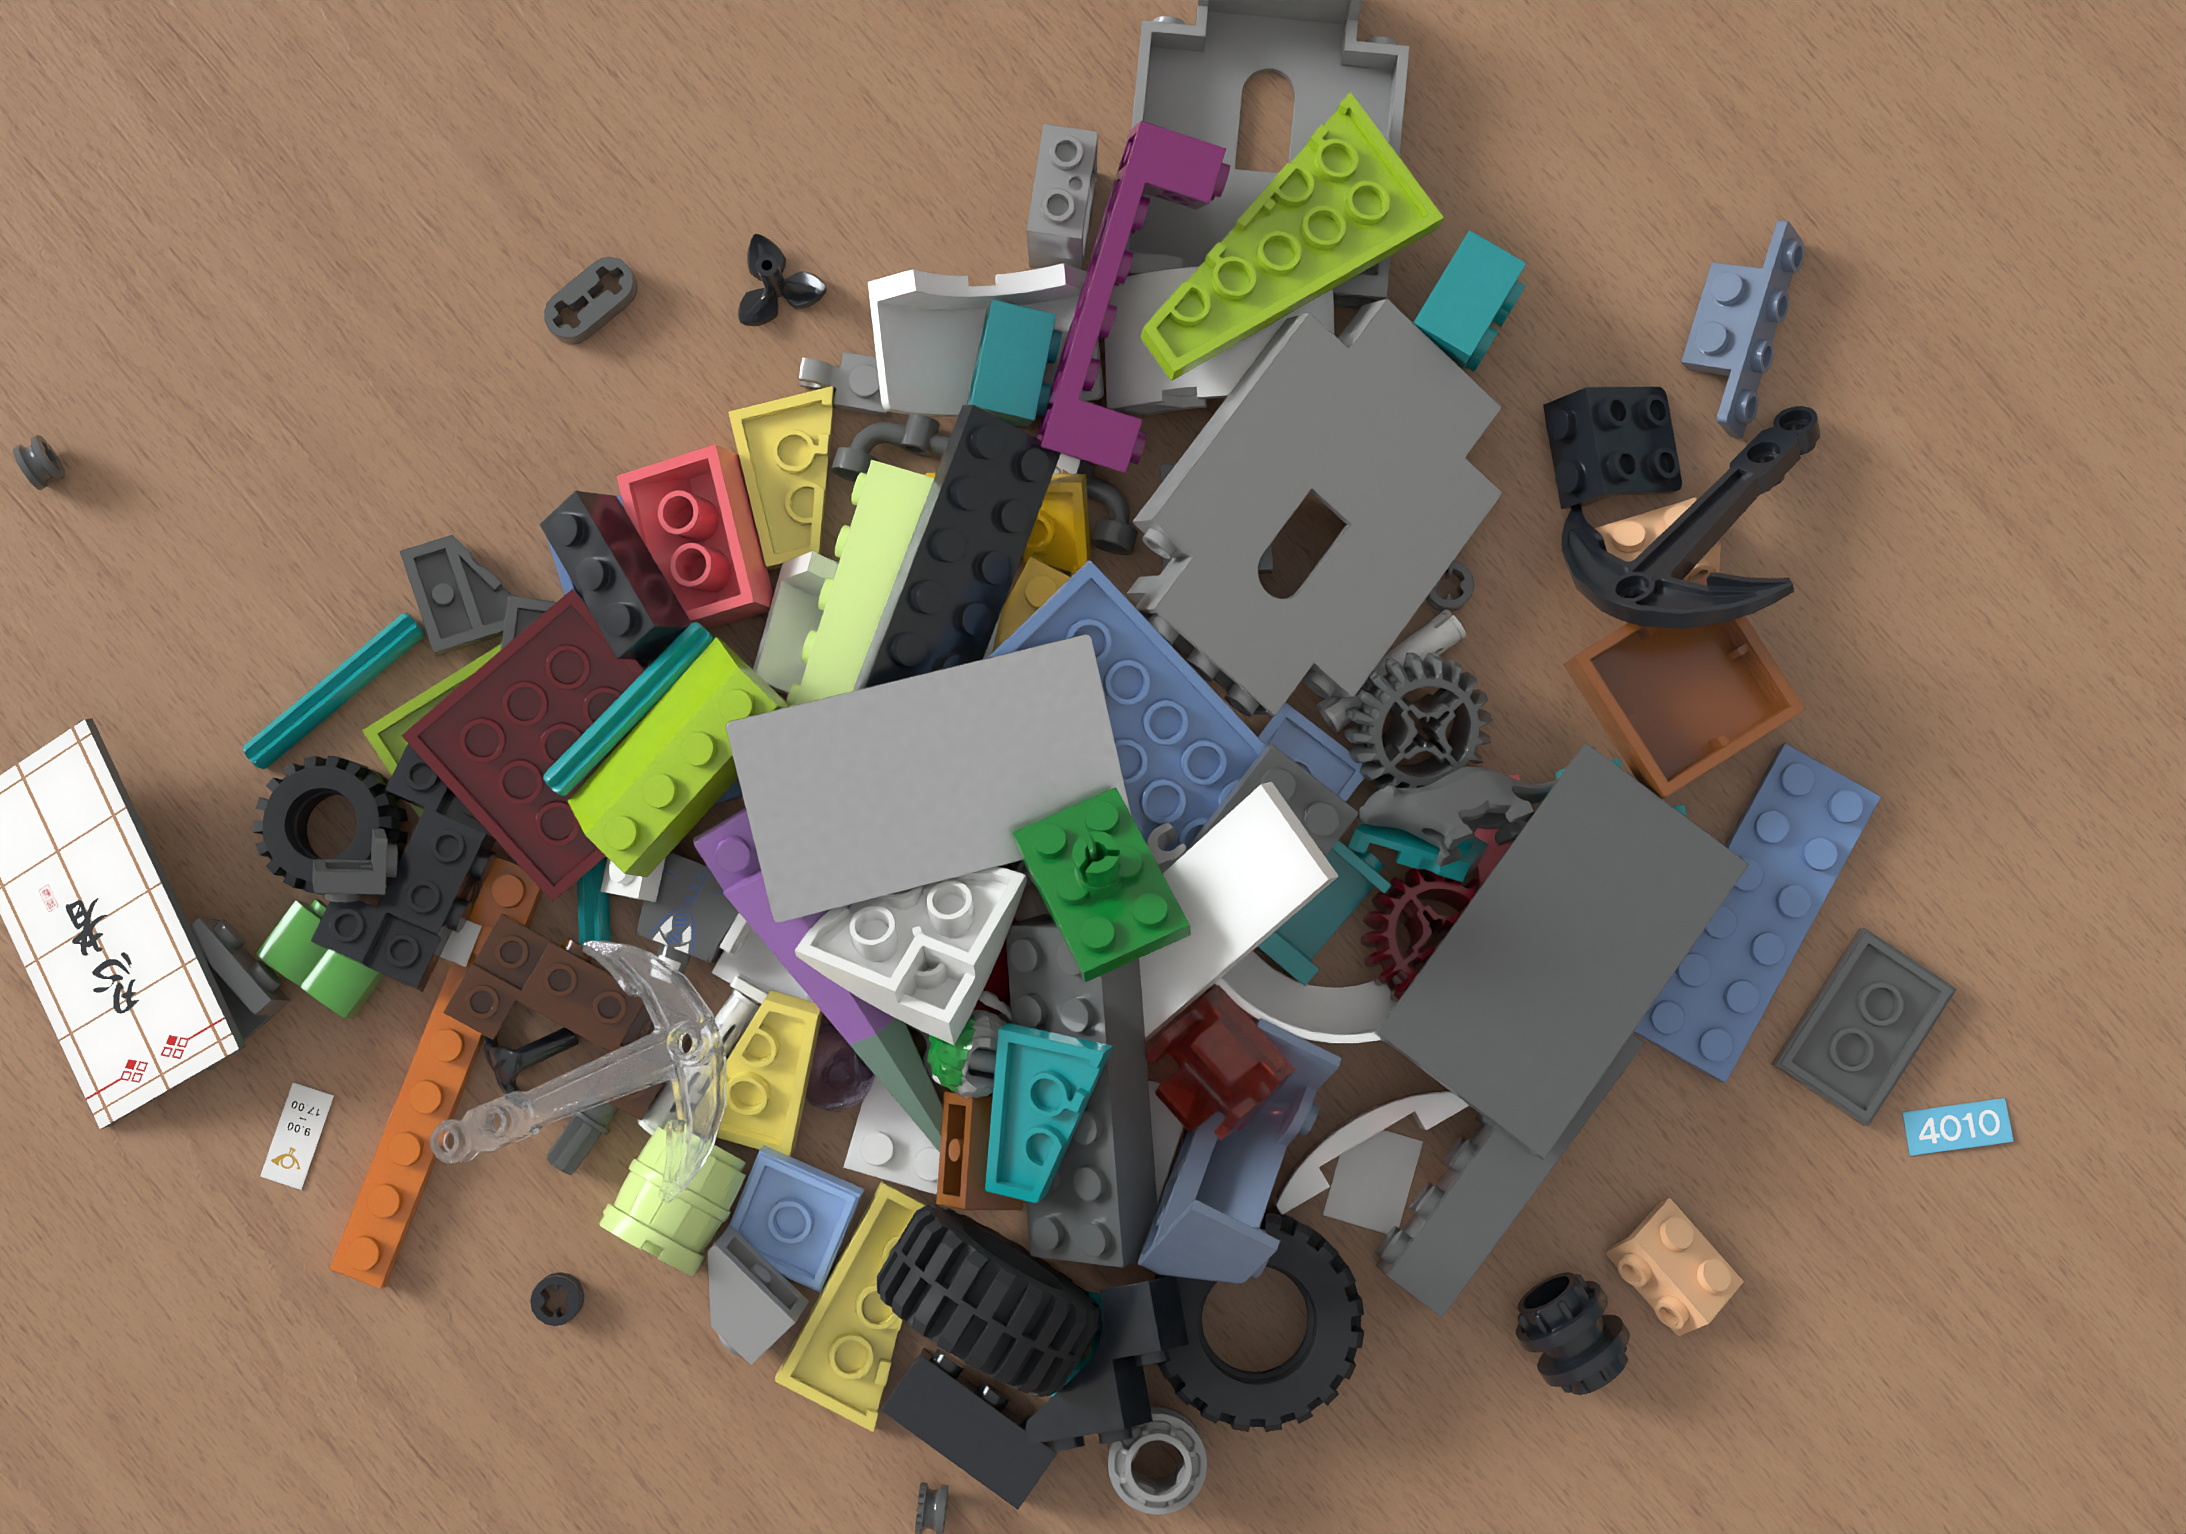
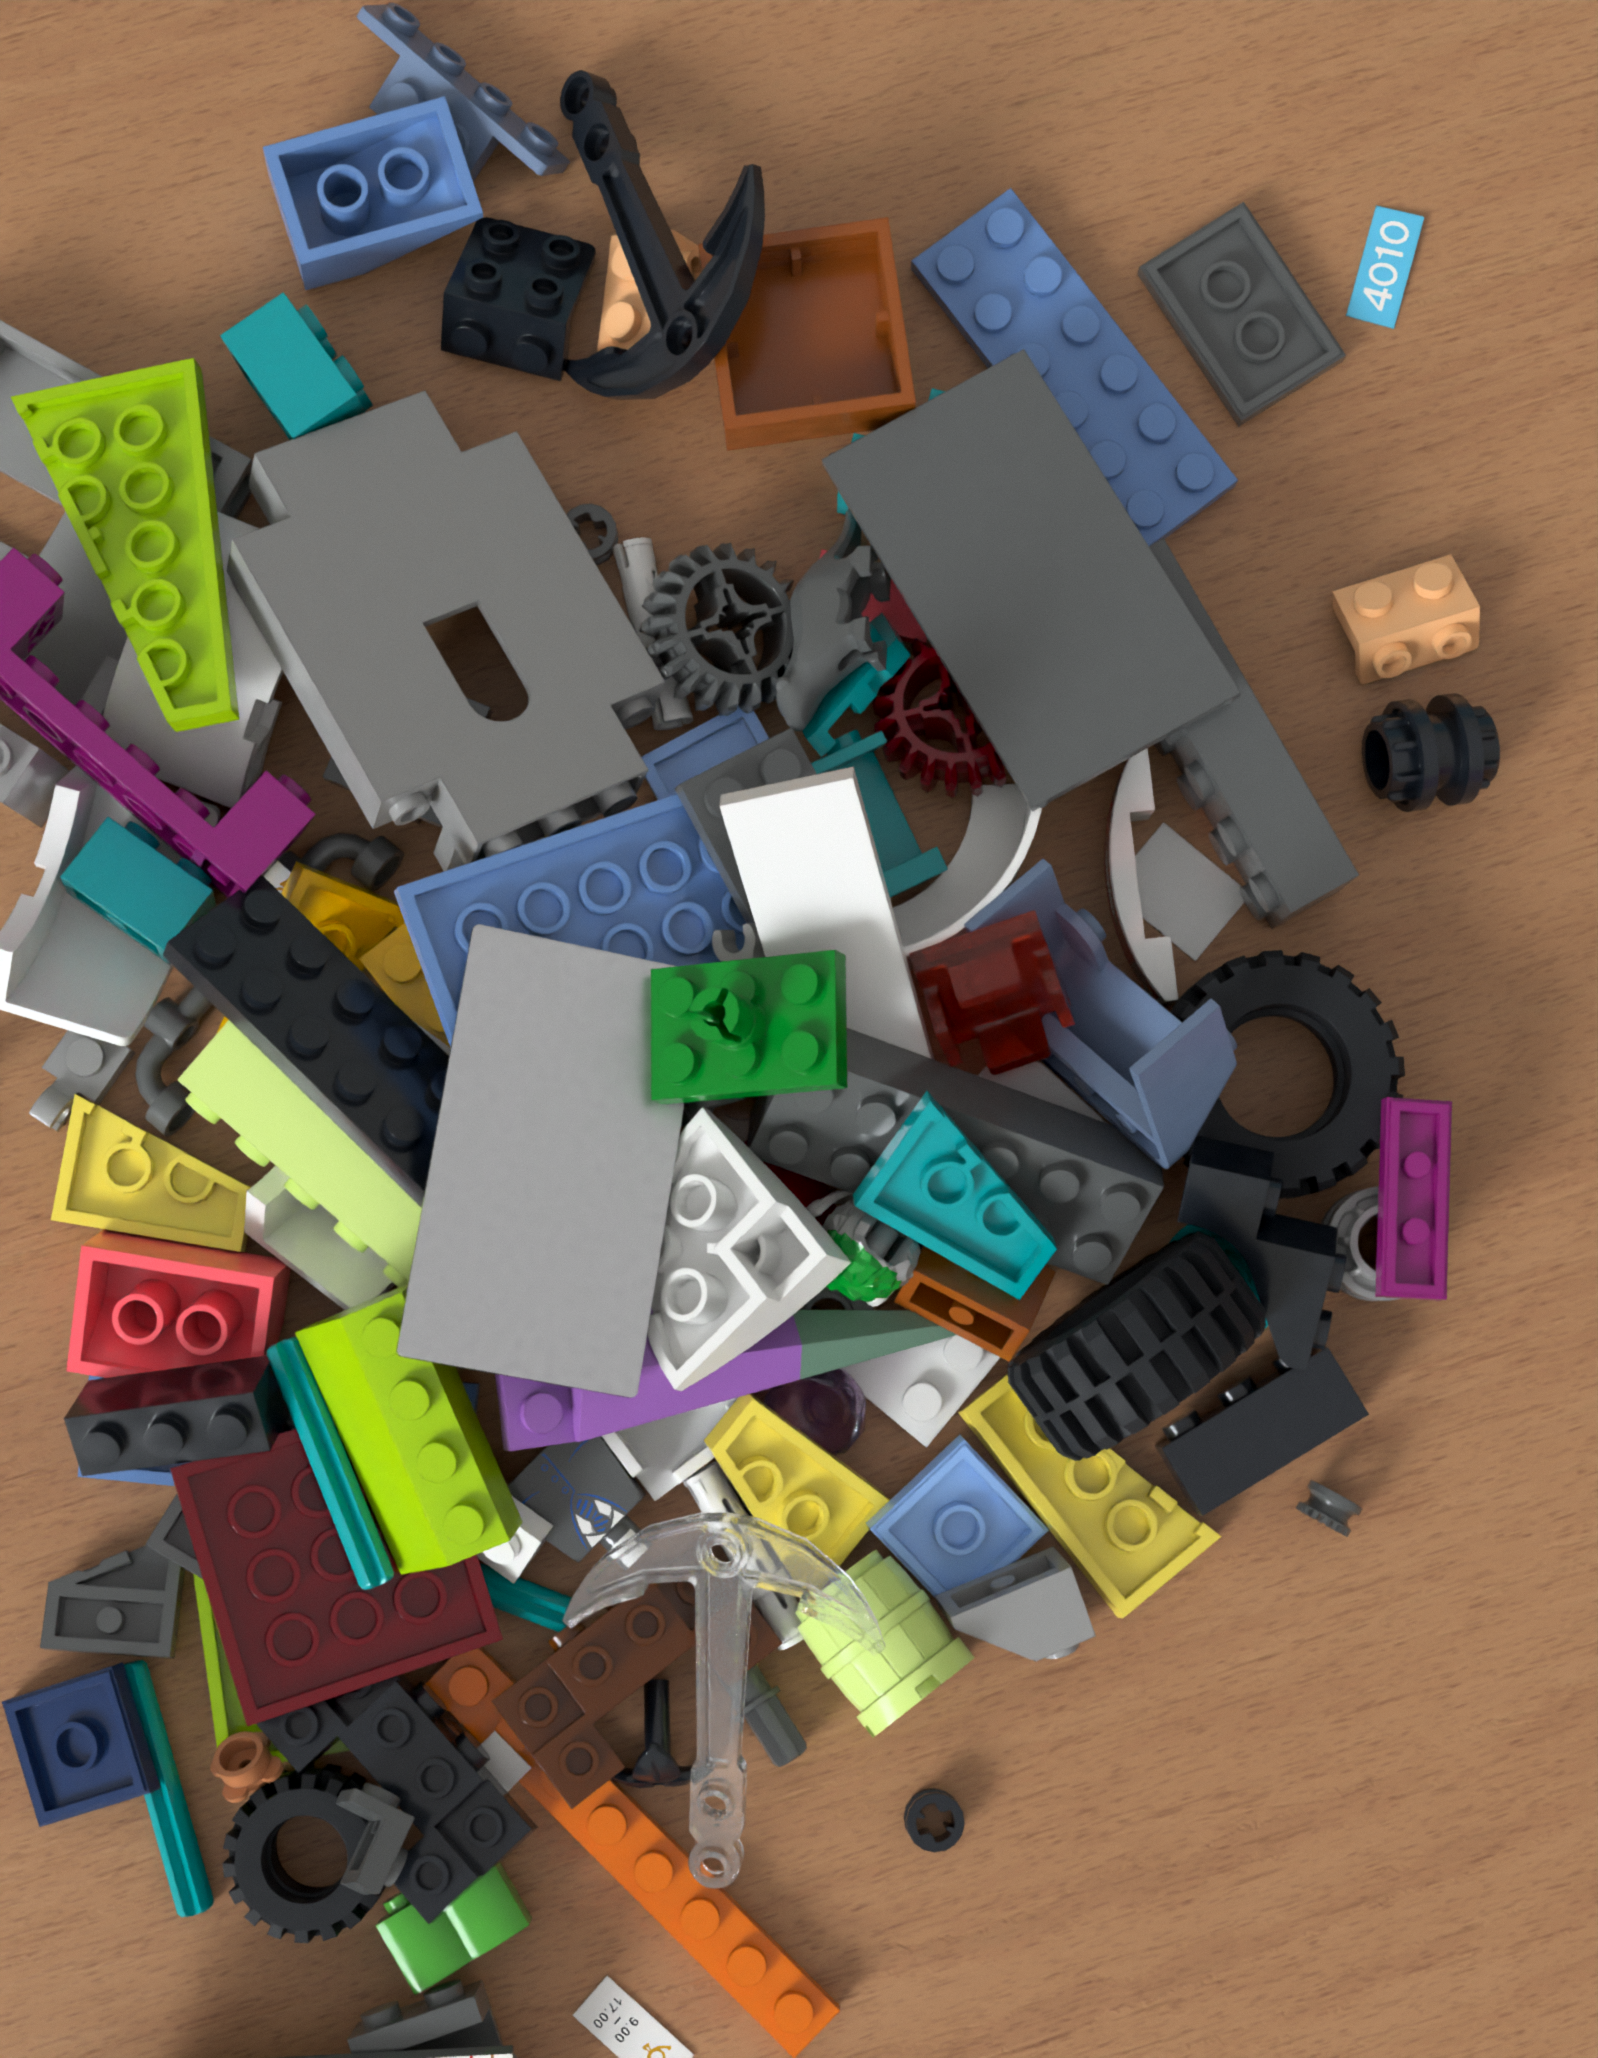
camera: 65 degrees left, 0 degrees up
(340, 615) = (81, 1744): none -> dark blue tile
(374, 746) = (245, 1764): none -> nougat plate
(1201, 1473) = (1413, 1199): none -> magenta tile
(1644, 295) = (371, 190): none -> medium blue slope

